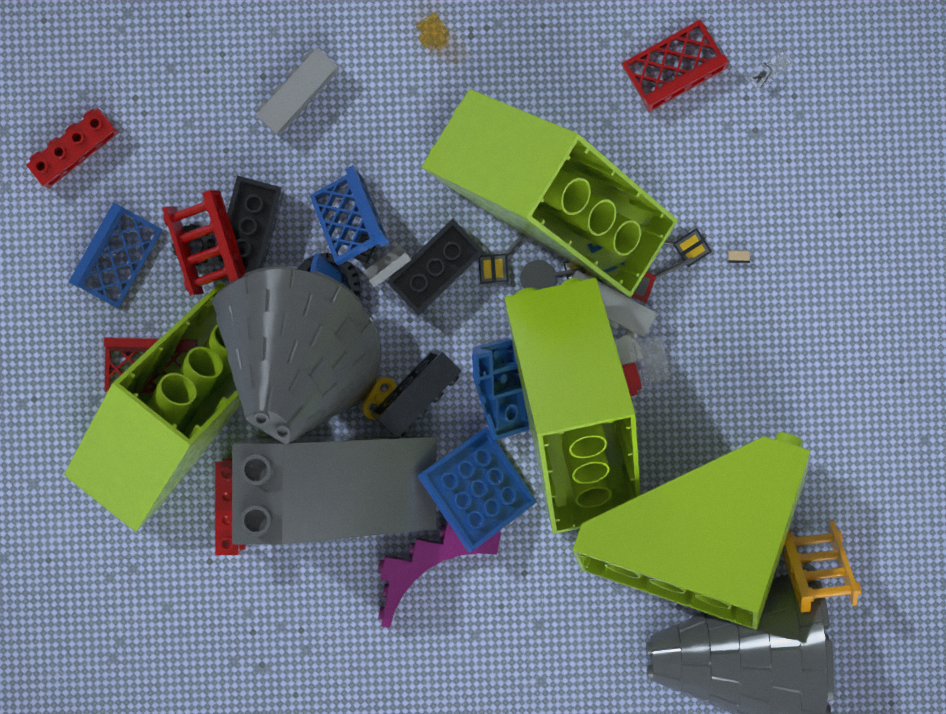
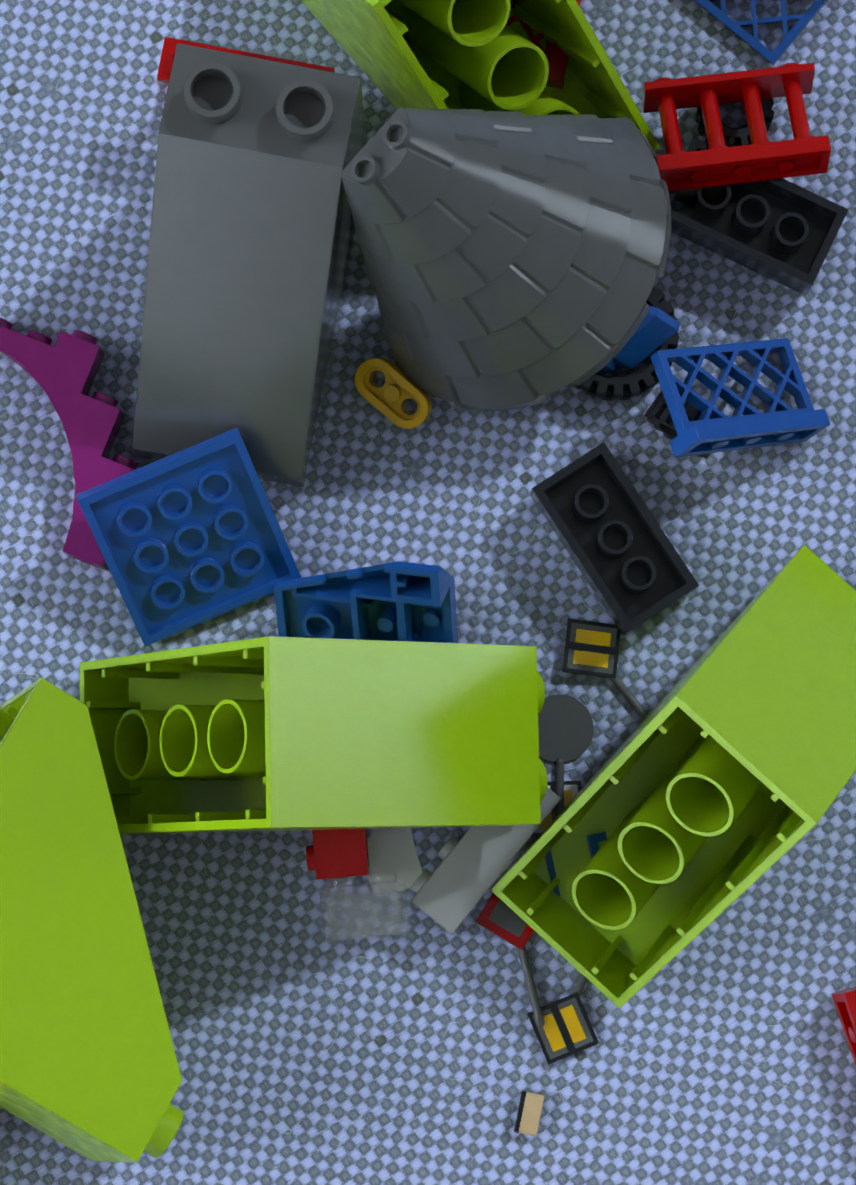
camera: 100 degrees right, 5 degrees down
(386, 265) = (633, 450): light grey slope -> none
(416, 393) = (388, 457): black brick -> none

